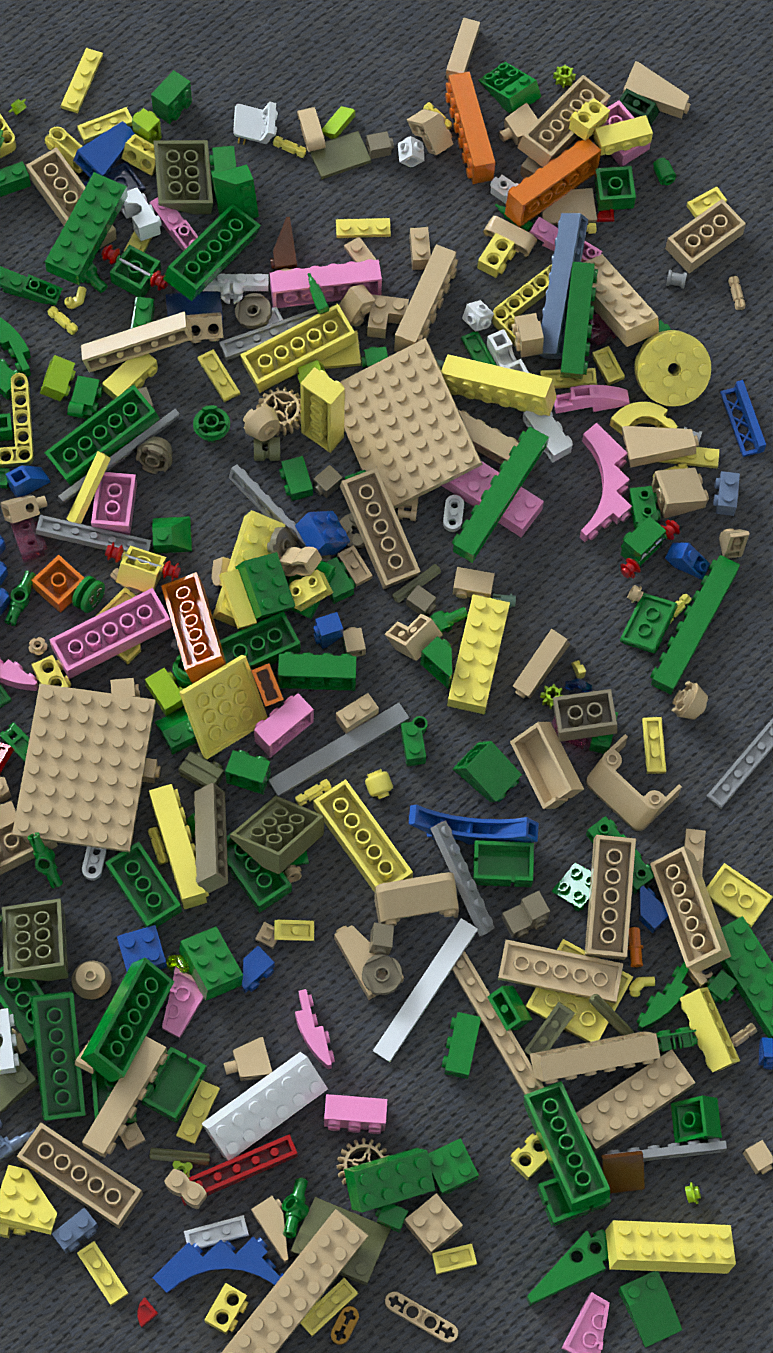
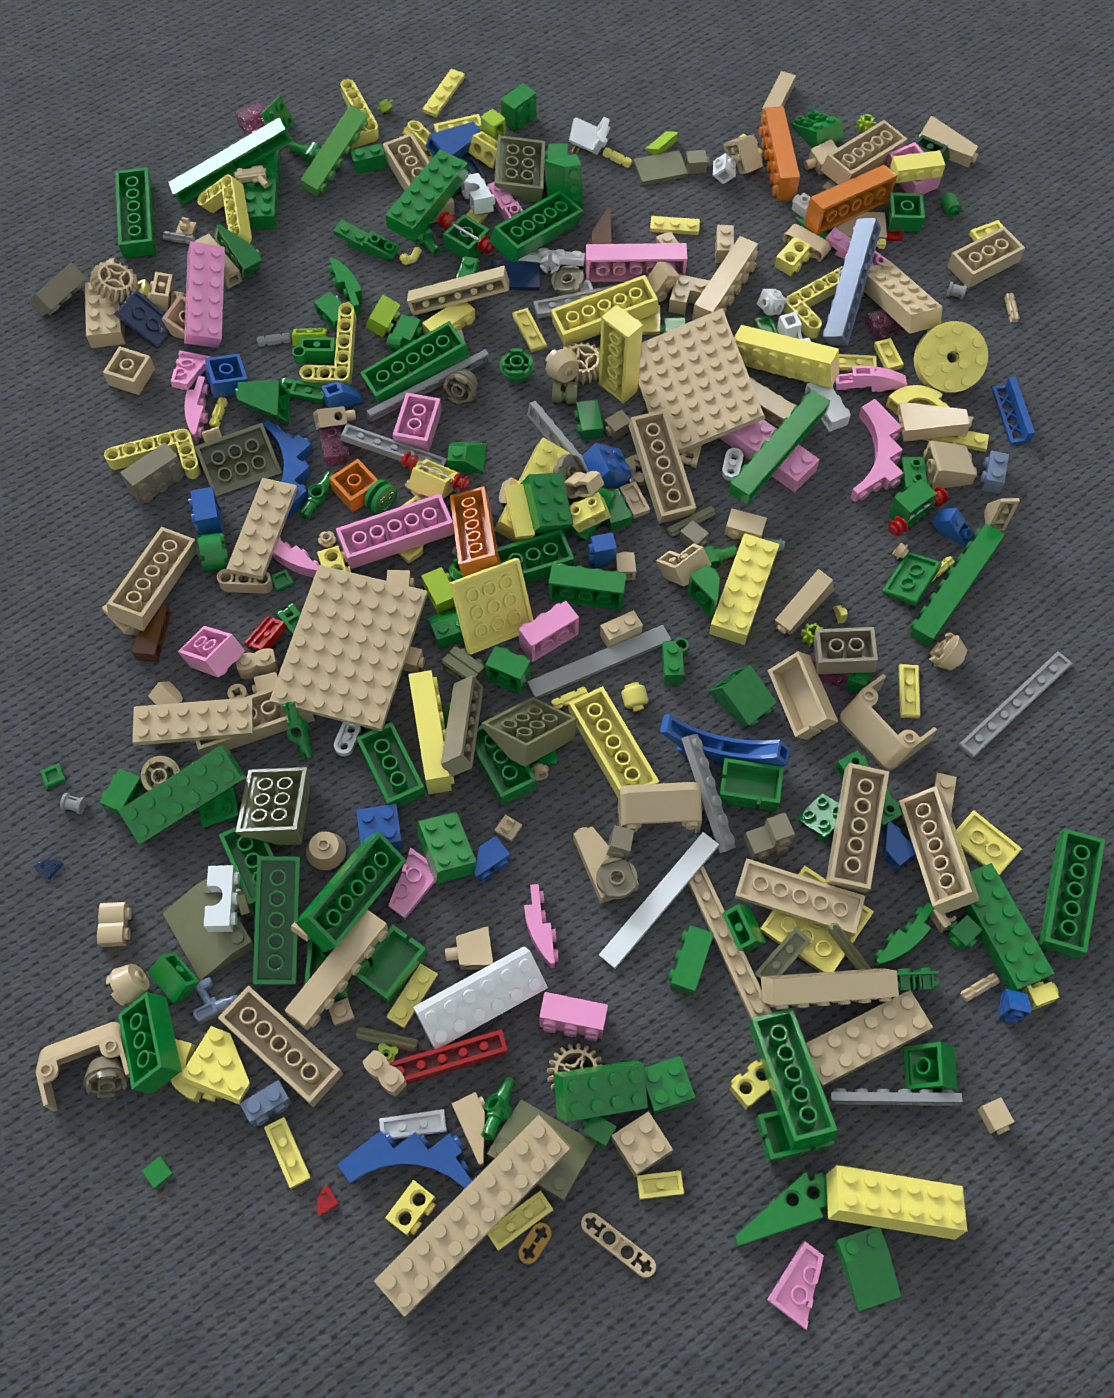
camera: 10 degrees right, 5 degrees down
(62, 320) = (396, 272): light yellow axle -> none
(88, 488) = (396, 405): light yellow tile -> none
(158, 845) = (412, 731): light yellow axle -> none
(177, 961) = (413, 842): clear neon green arm -> none
(203, 322) = (521, 283): tan brick -> none
(267, 685) = (537, 591): orange brick -> none
(294, 930) = (534, 825): light yellow plate -> none
(311, 129) = (638, 144): tan beam -> none
(318, 296) = (627, 266): green piece -> none
(528, 335) = (818, 317): tan brick -> none
(577, 320) = (866, 306): green brick -> none
(578, 683) = (836, 624): clear blue tile -> none
(589, 117) = (887, 147): light yellow brick -> none
(624, 1171) = (851, 1112): reddish brown tile -> none
(635, 947) = (878, 883): orange axle -> none
(638, 984) = (880, 919): light yellow arm -> none
(692, 1193) = (922, 1146): lime plate -> none
(710, 1029) = (952, 975): light yellow brick -> none

